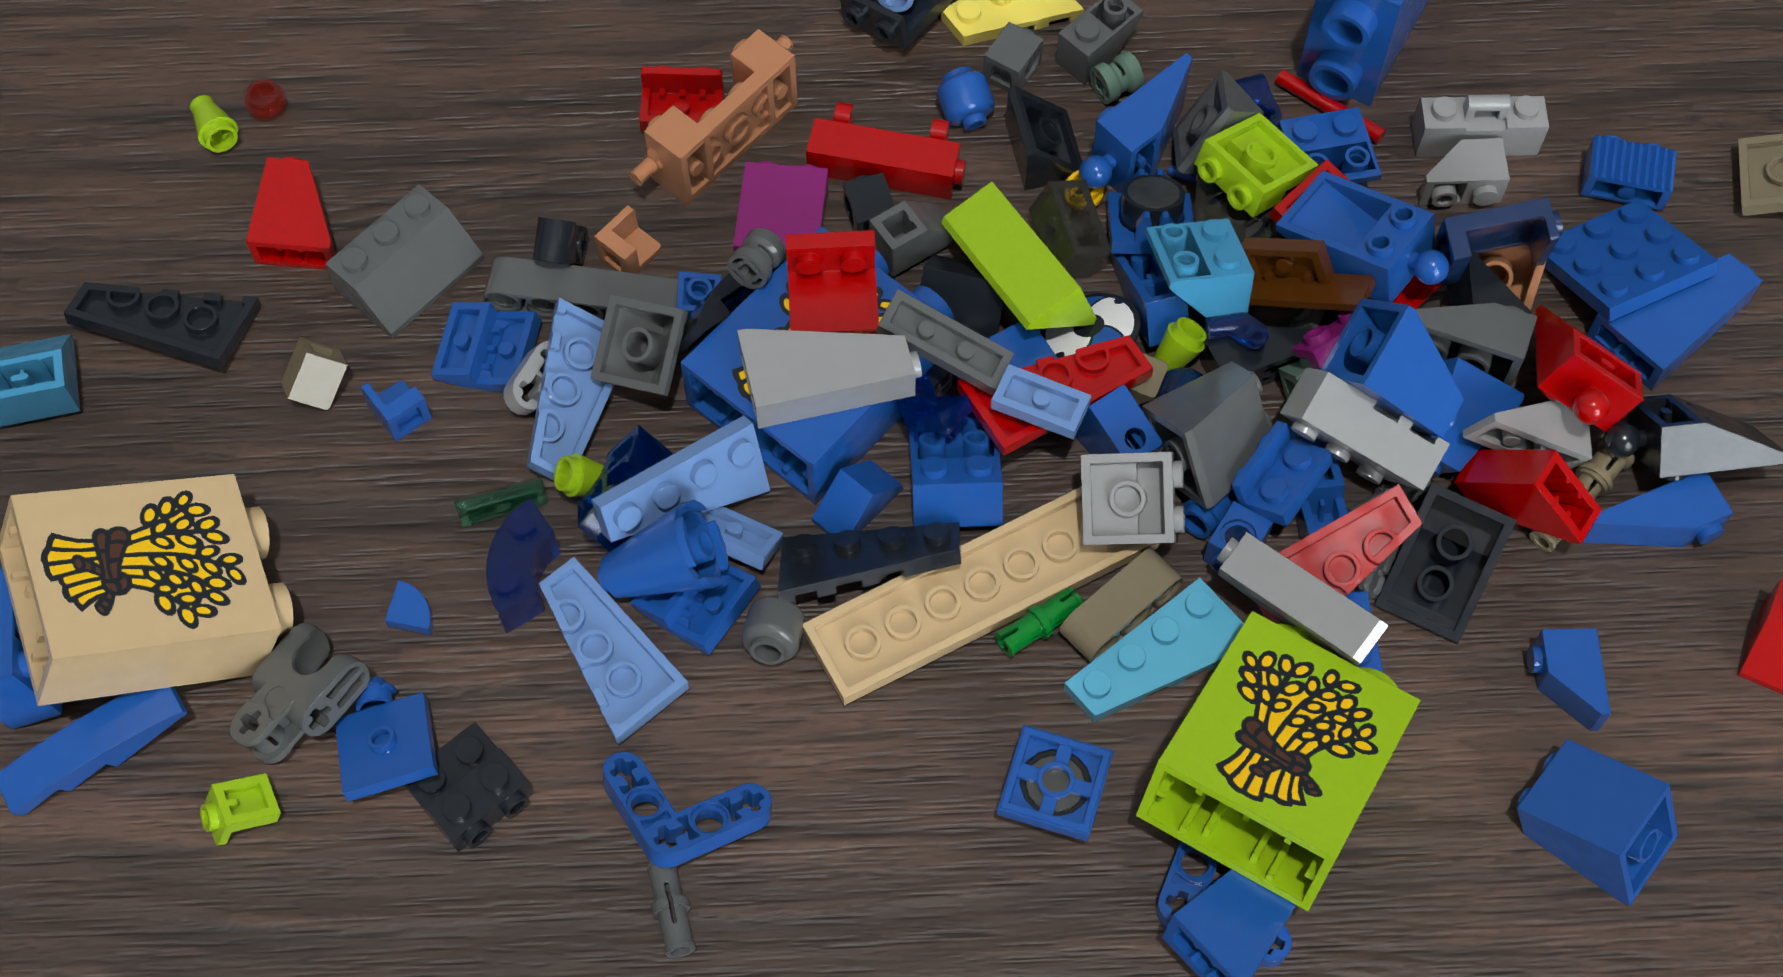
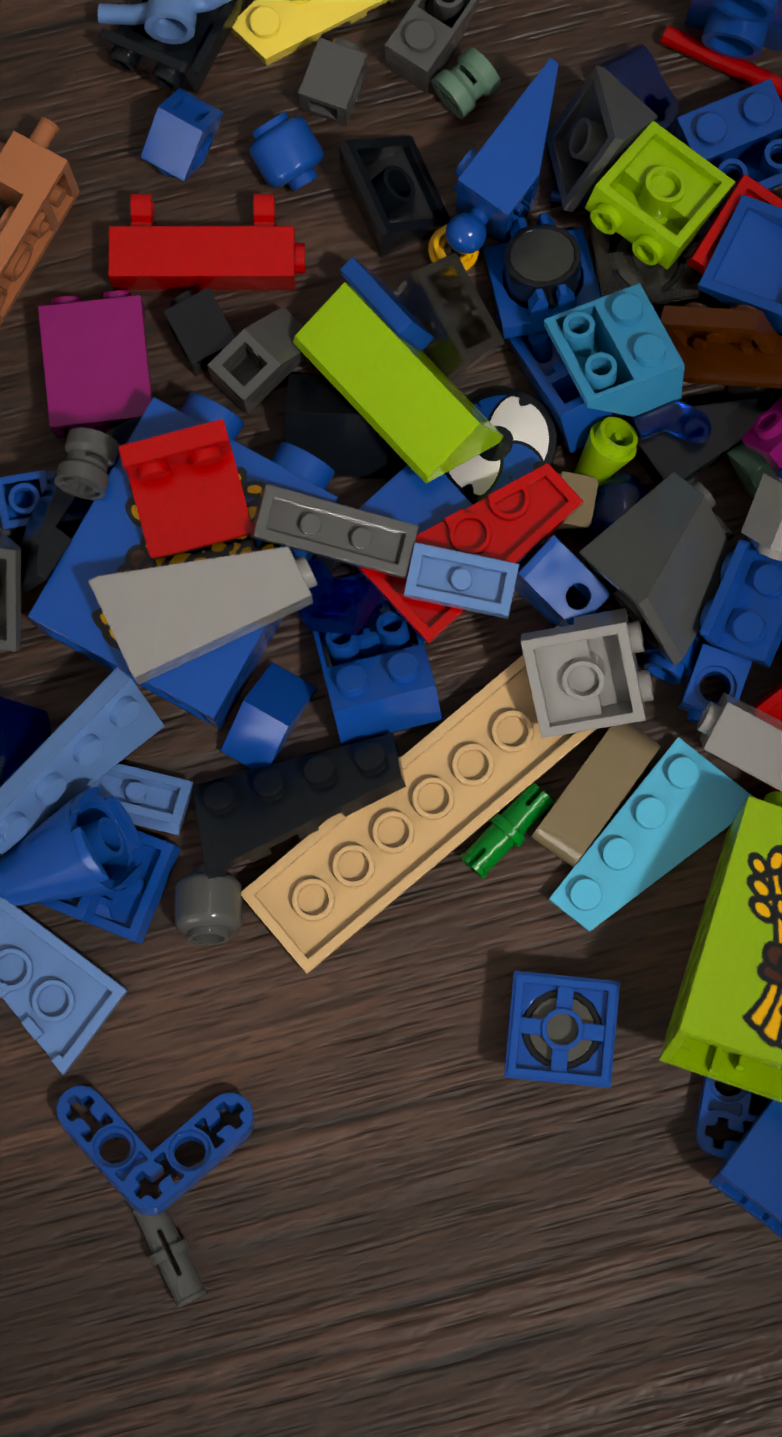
camera: 10 degrees left, 20 degrees up
(886, 70) = (181, 135): none -> blue brick
(1023, 206) = (386, 304): none -> blue tile

